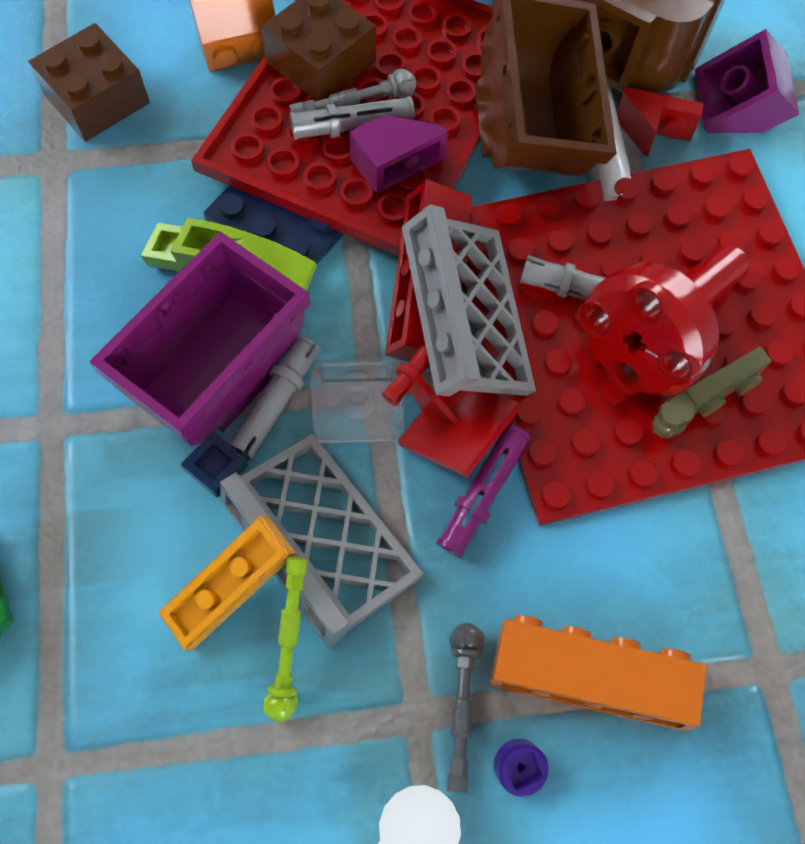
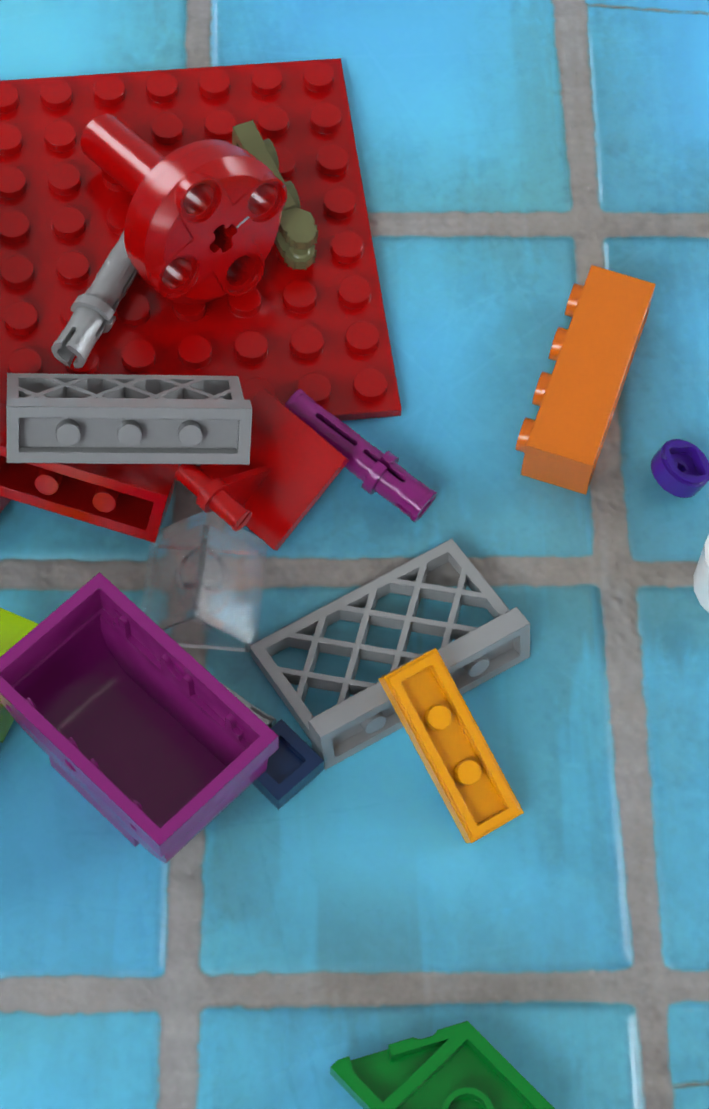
camera: 85 degrees left, 5 degrees down
(282, 696) = (588, 706): lime piece -> none
(466, 642) = (540, 504): dark grey piece -> none

